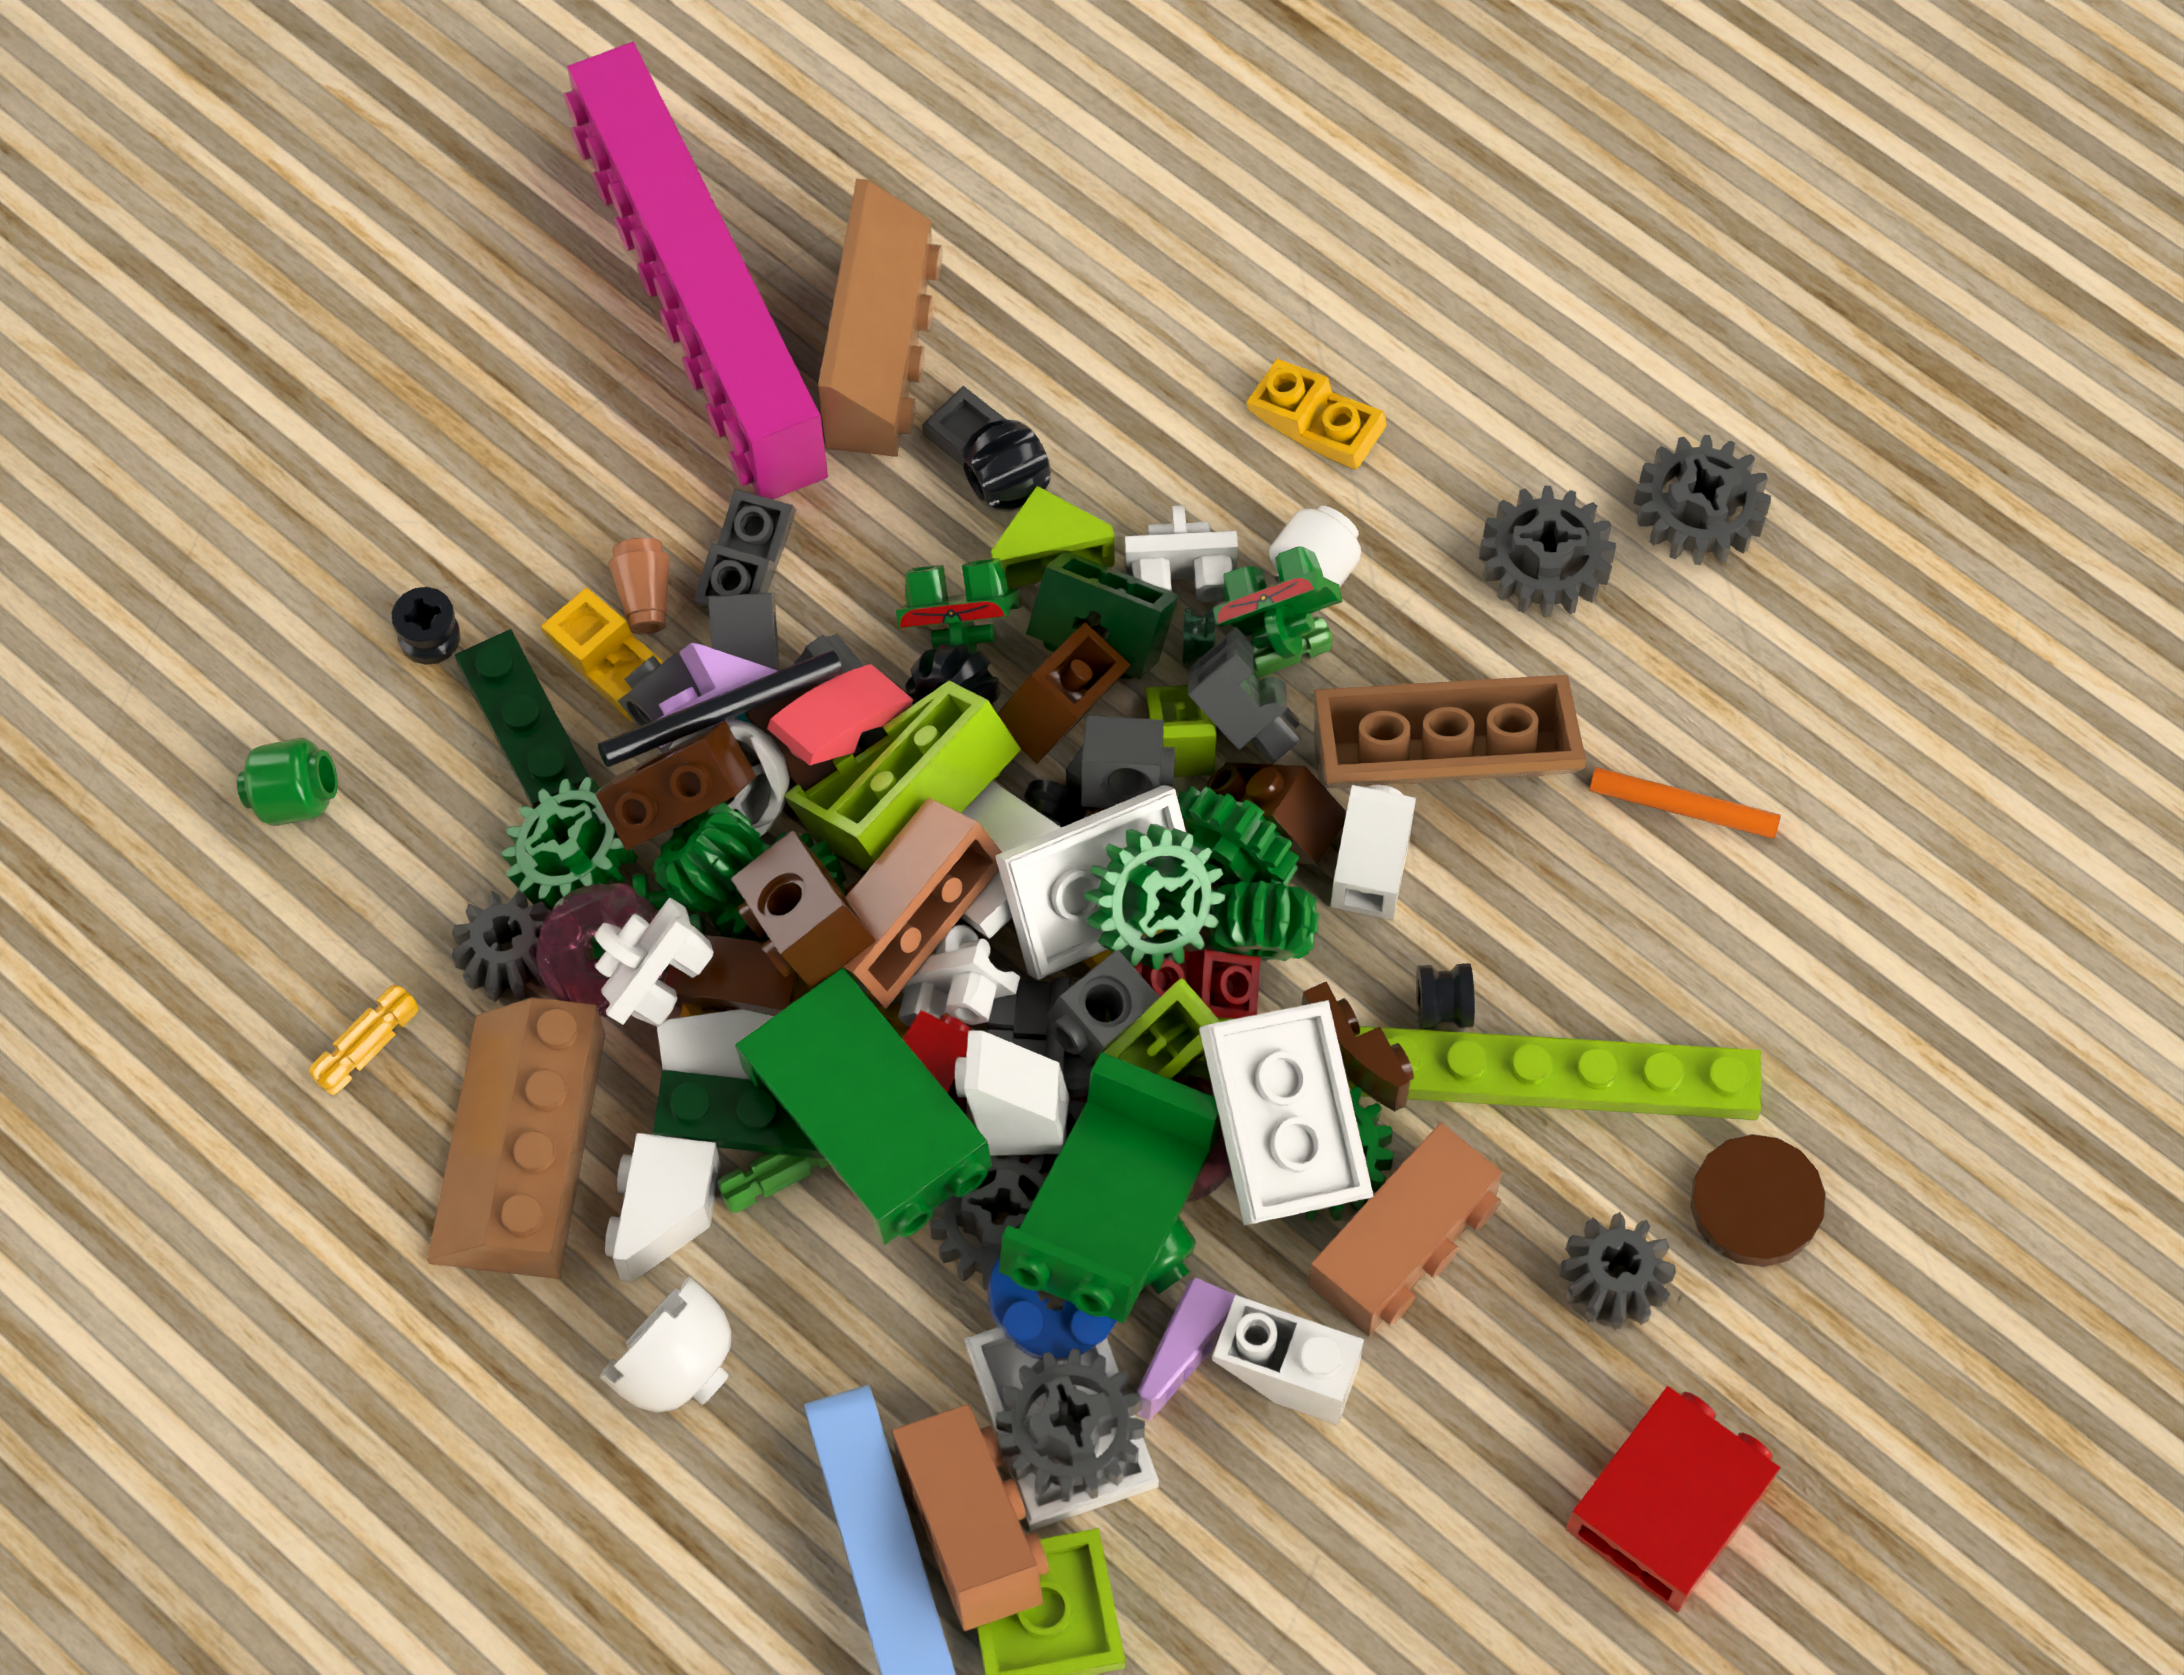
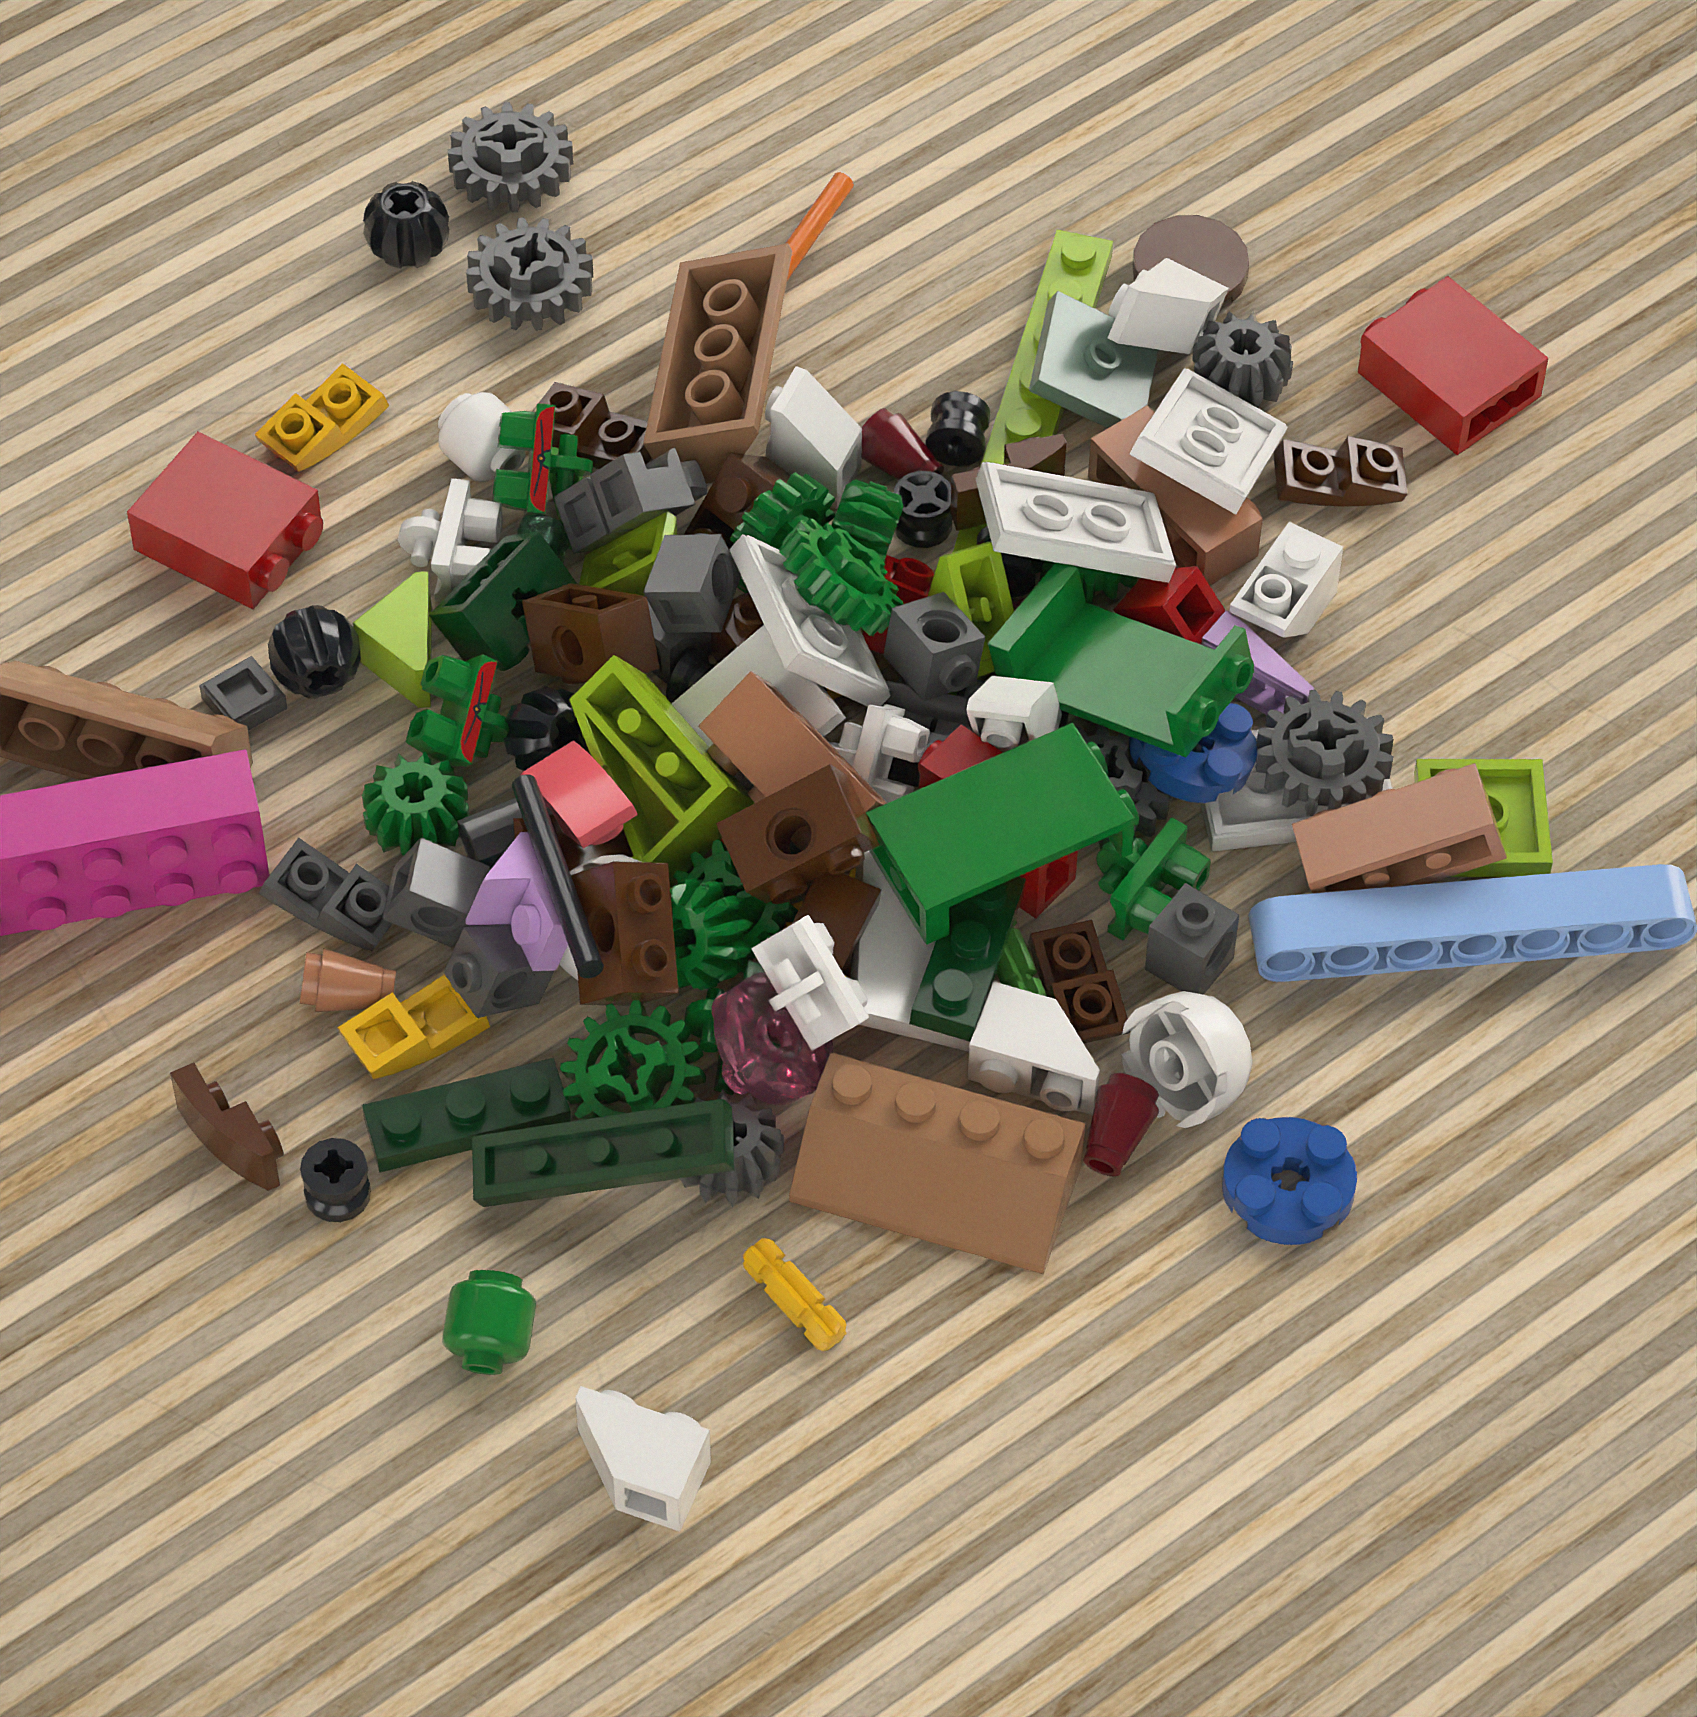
camera: 80 degrees left, 10 degrees down
(160, 938) = (644, 1457): none -> white slope
(450, 538) = (228, 1132): none -> reddish brown slope
(463, 834) = (603, 1153): none -> dark green plate
(533, 1448) = (1296, 1146): none -> blue plate
(595, 1299) = (1119, 1122): none -> dark red cone
(761, 1240) = (1078, 978): none -> reddish brown slope
(816, 1331) = (1191, 941): none -> dark grey brick
(852, 595) = (414, 803): none -> green gear
(896, 1271) = (1141, 877): none -> green hips
(1159, 358) = (226, 520): none -> brick
(1226, 1250) = (1180, 607): none -> red brick
(1338, 967) = (922, 494): none -> black wheel
(1368, 642) = (600, 432): none -> reddish brown slope
(1404, 942) = (895, 446): none -> dark red cone
(1467, 1243) = (1209, 440): none -> white tile
(1494, 1402) = (1353, 475): none -> reddish brown slope
(1565, 1116) = (1085, 368): none -> sand green plate
(1576, 424) = (406, 224): none -> black piece
(1650, 1170) = (1165, 308): none -> white slope

